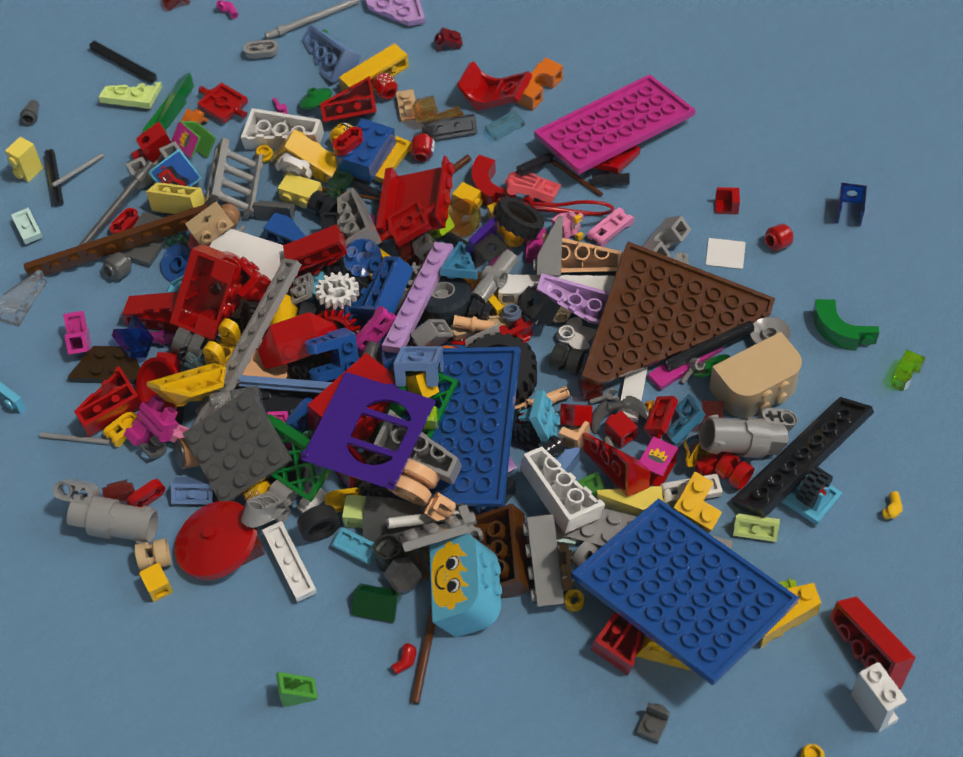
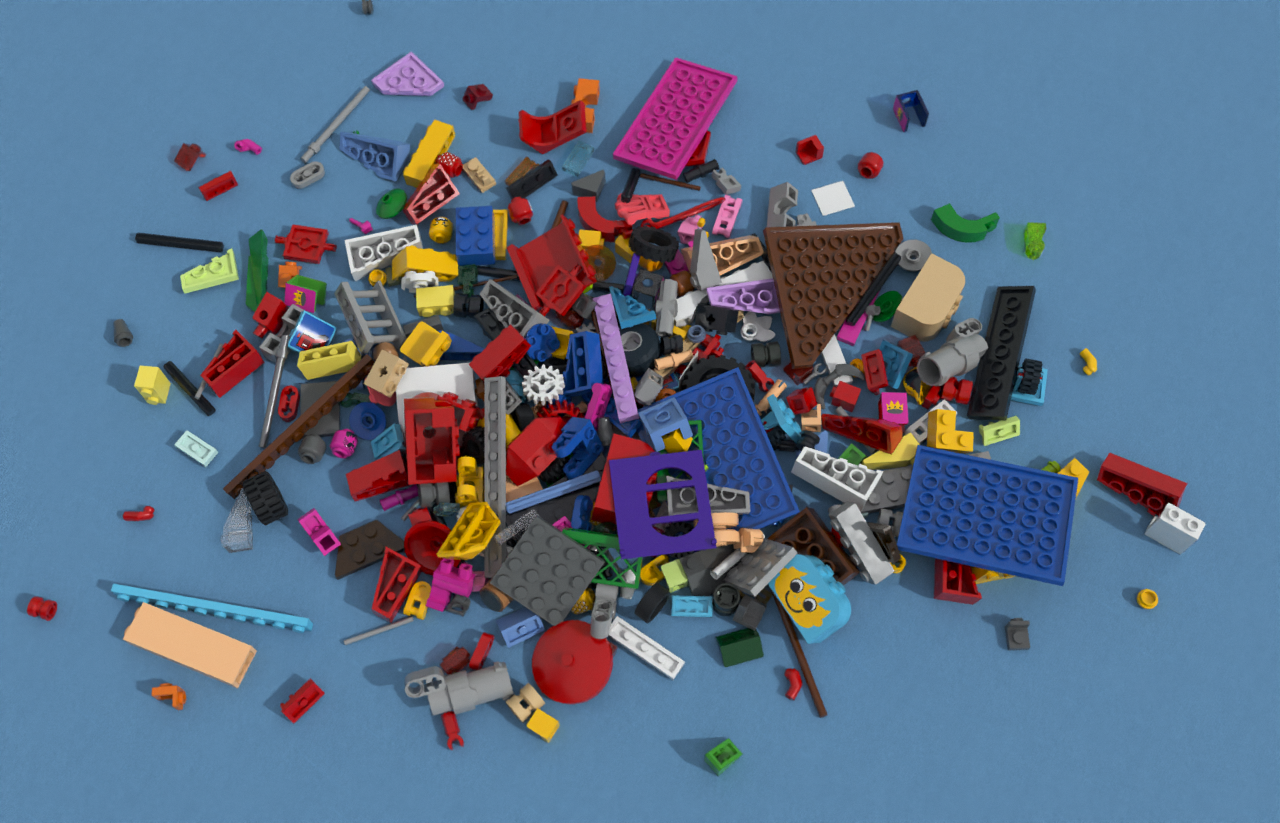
camera: 30 degrees left, 10 degrees up
(50, 285) = (265, 498): none -> black tyre
(78, 548) = (451, 728): none -> red bar
(97, 172) = (232, 365): none -> red wedge
(135, 339) = (376, 512): clear blue panel -> none
(145, 272) = (343, 443): none -> dark pink head
(182, 29) = (218, 186): none -> red plate
(263, 219) = (426, 345): none -> yellow bracket
(349, 139) = (457, 235): red beam -> none
(425, 108) = (501, 172): clear orange panel -> none
(470, 520) = (777, 536): light grey plate -> none
(500, 150) = (589, 185): none -> dark grey slope
(525, 264) = (683, 281): none -> dark orange head
(547, 373) = (759, 375): none -> red bar
(627, 198) = (726, 183): none -> light grey plate

